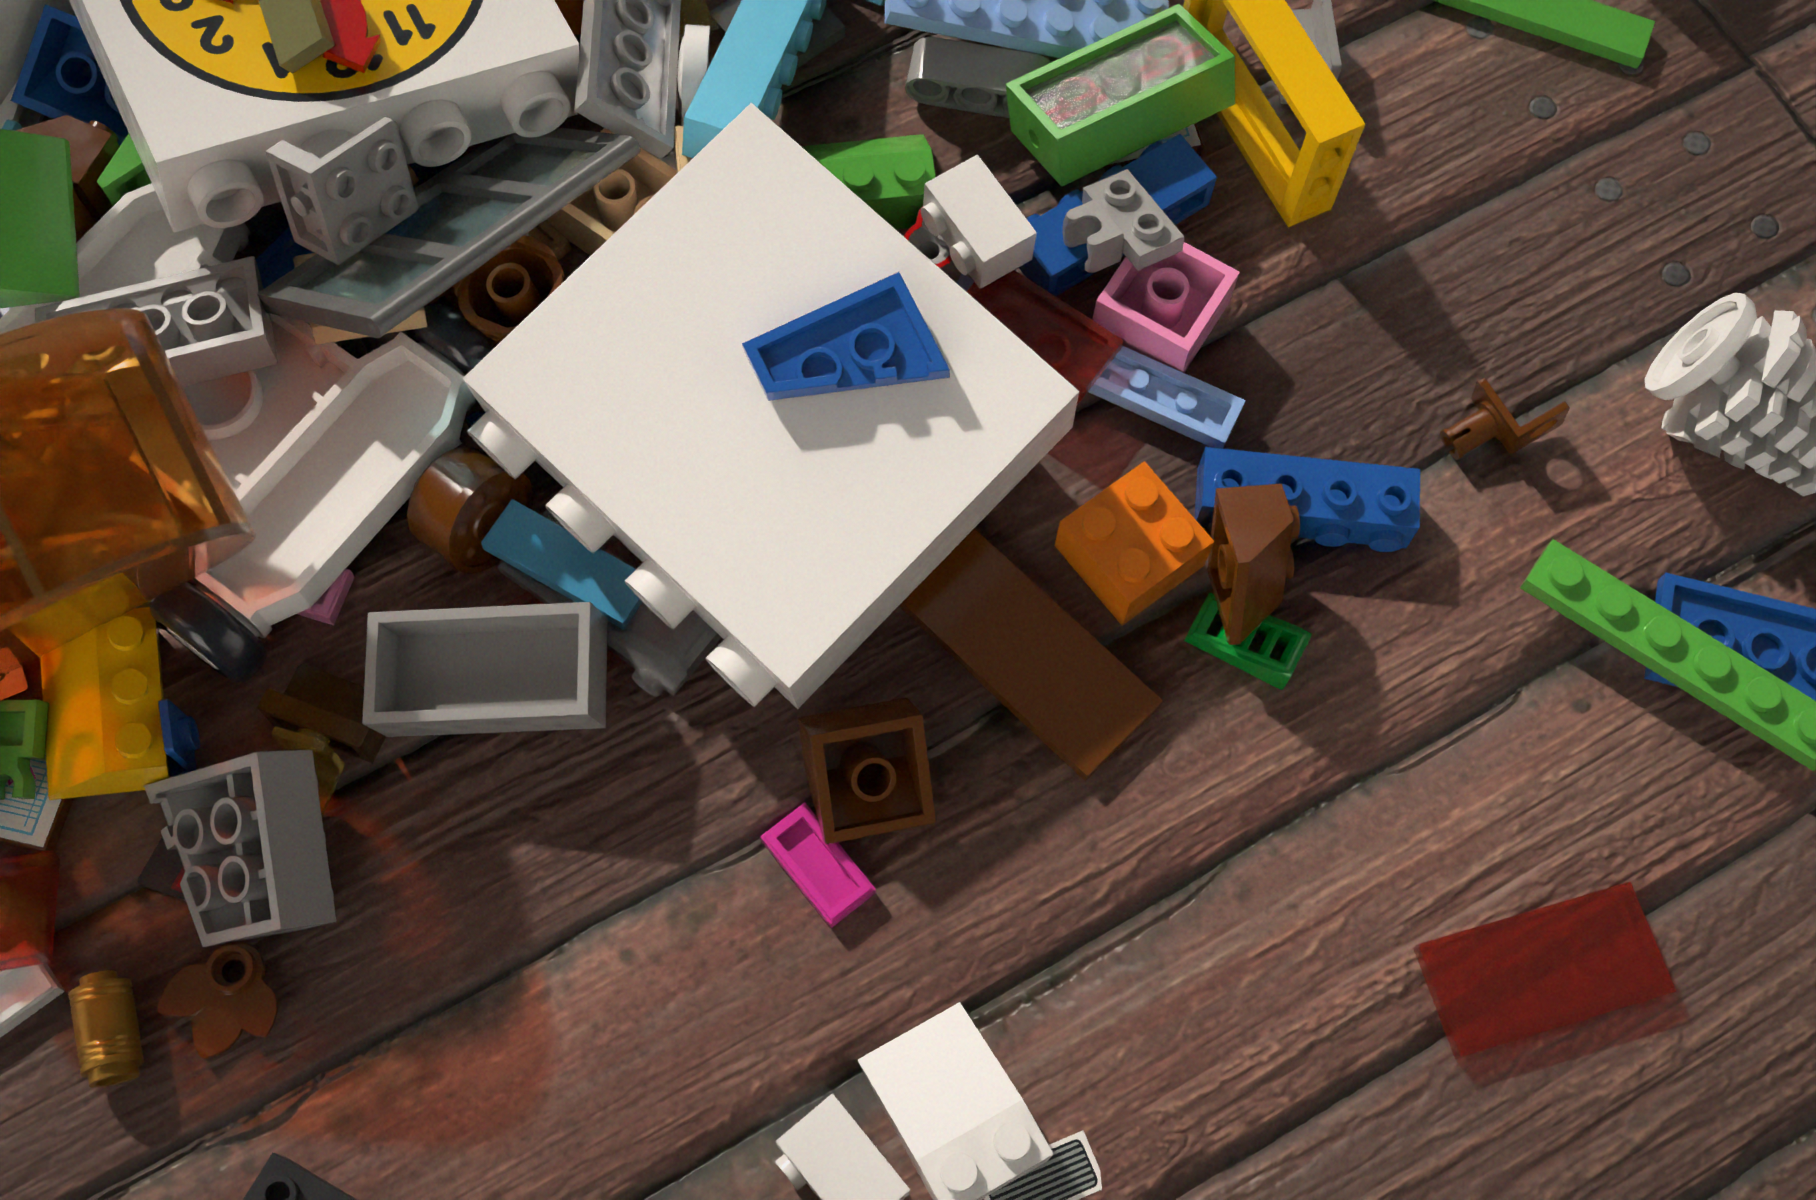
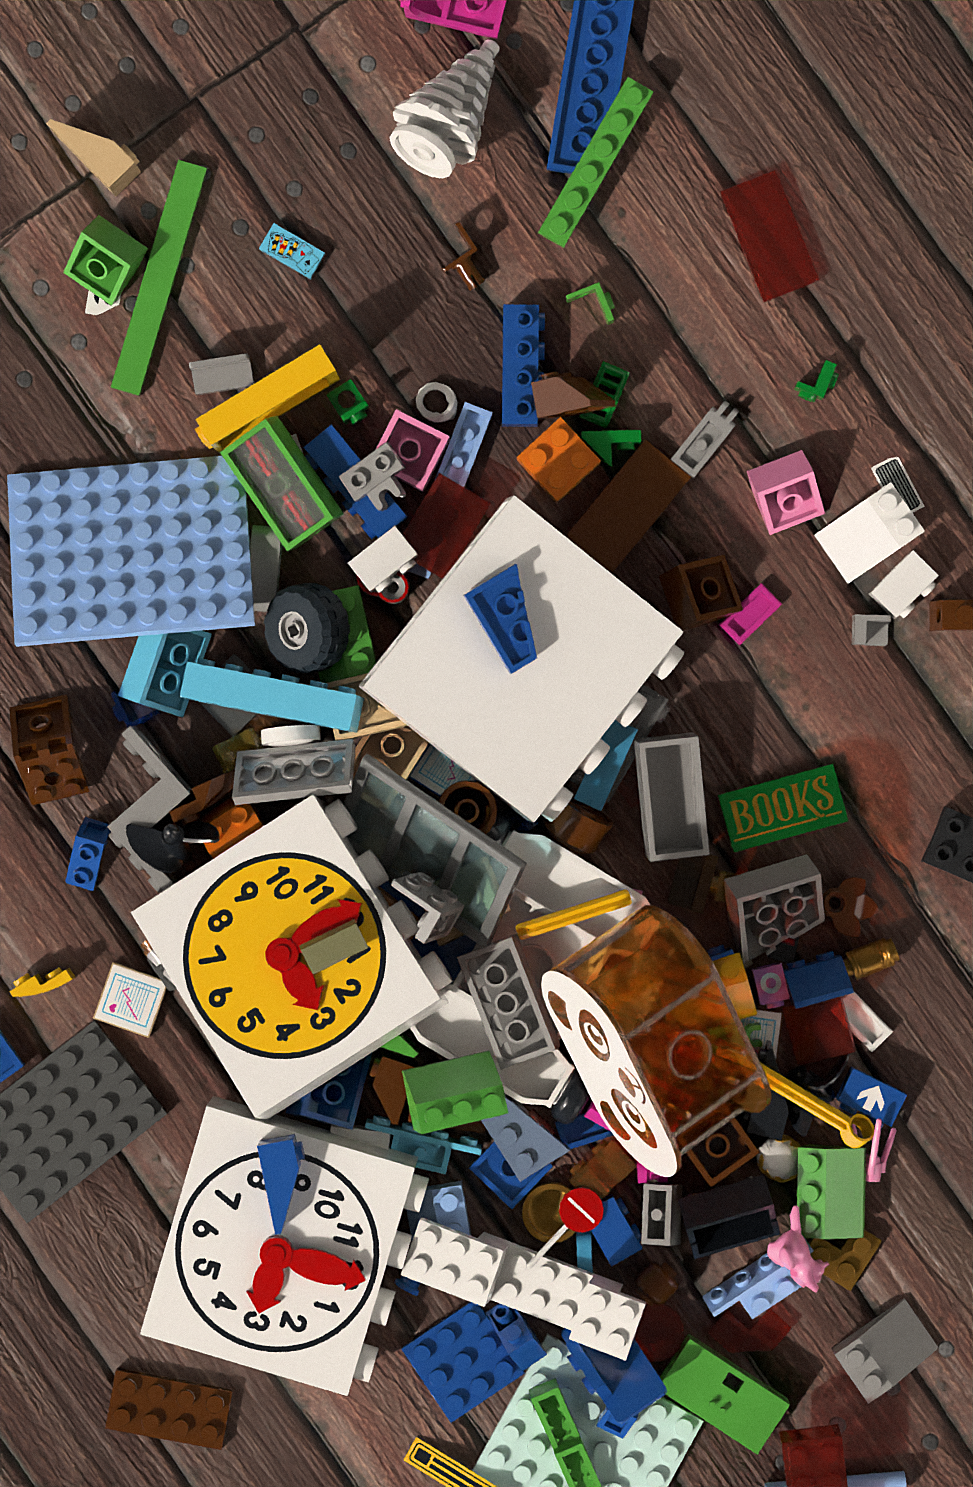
camera: 90 degrees left, 20 degrees up
(77, 912) = (817, 980): none -> blue slope
(101, 829) = (770, 985): none -> medium lavender brick
(290, 459) = (573, 914): none -> yellow axle
(437, 892) = (783, 808): none -> green tile
(759, 1092) = (870, 629): none -> light grey panel
(872, 107) = (306, 628): none -> black wheel
(1046, 949) = (786, 492): none -> bright pink slope
(1157, 809) = (704, 440): none -> light grey hinge
(1160, 626) = (601, 442): none -> green slope
(1232, 379) = (451, 410): none -> white piece
(1236, 230) = (354, 413): none -> green bracket
(1263, 1047) = (826, 379): none -> green bracket
(1425, 648) = (603, 298): none -> bright green bracket
(1506, 171) = (292, 251): none -> medium azure tile

